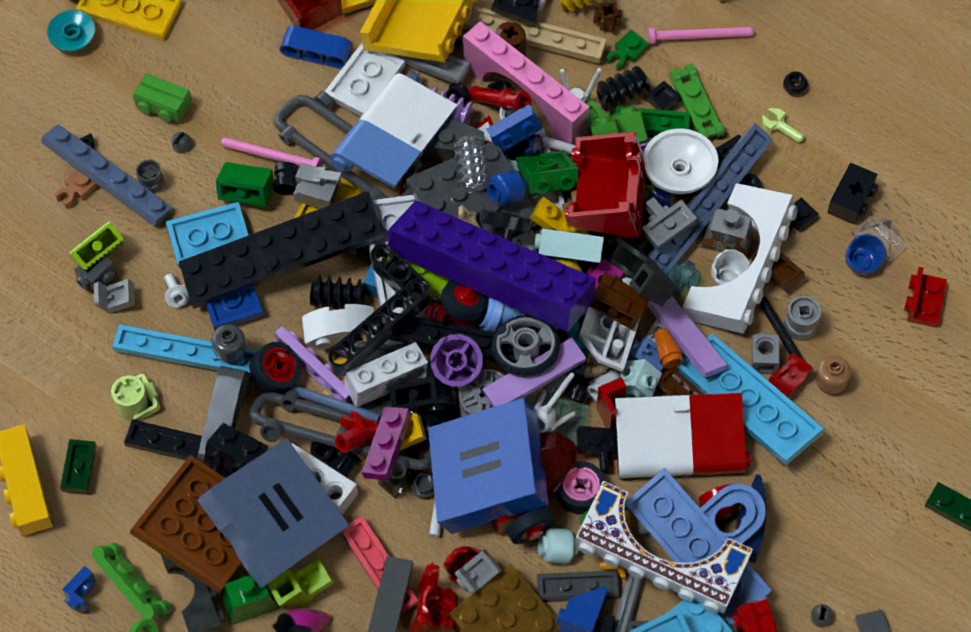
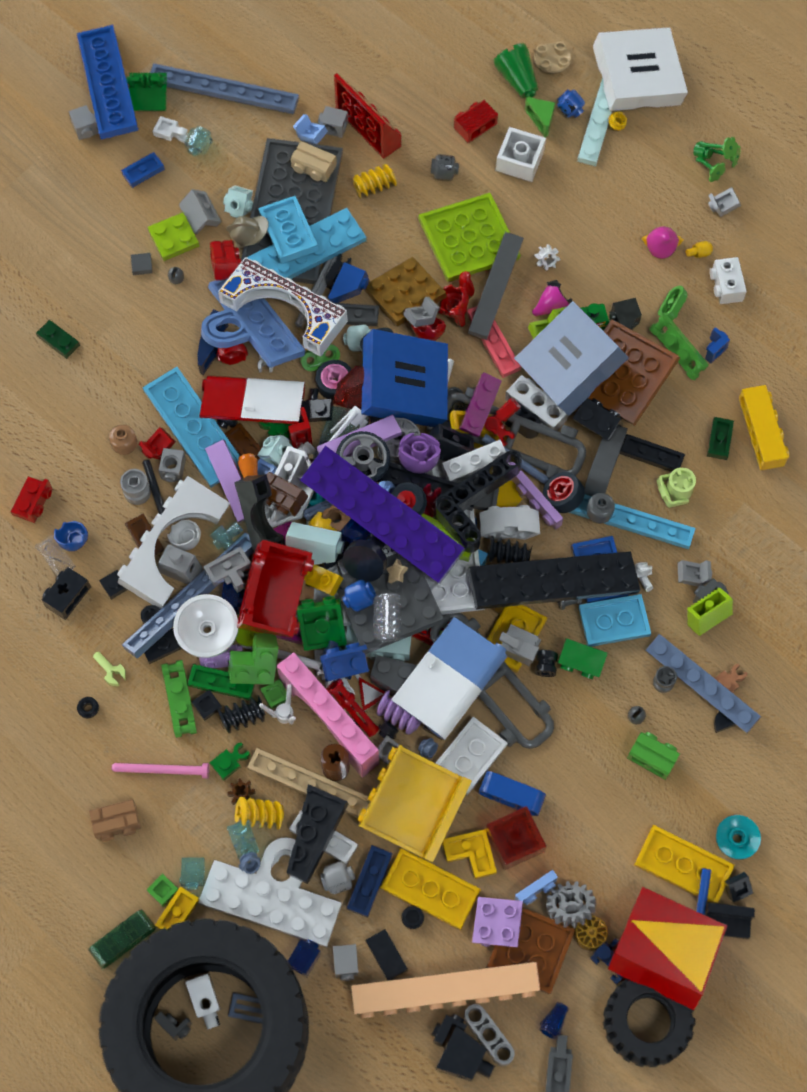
camera: 175 degrees left, 5 degrees up
(269, 153) = (521, 668): bright pink bar -> none

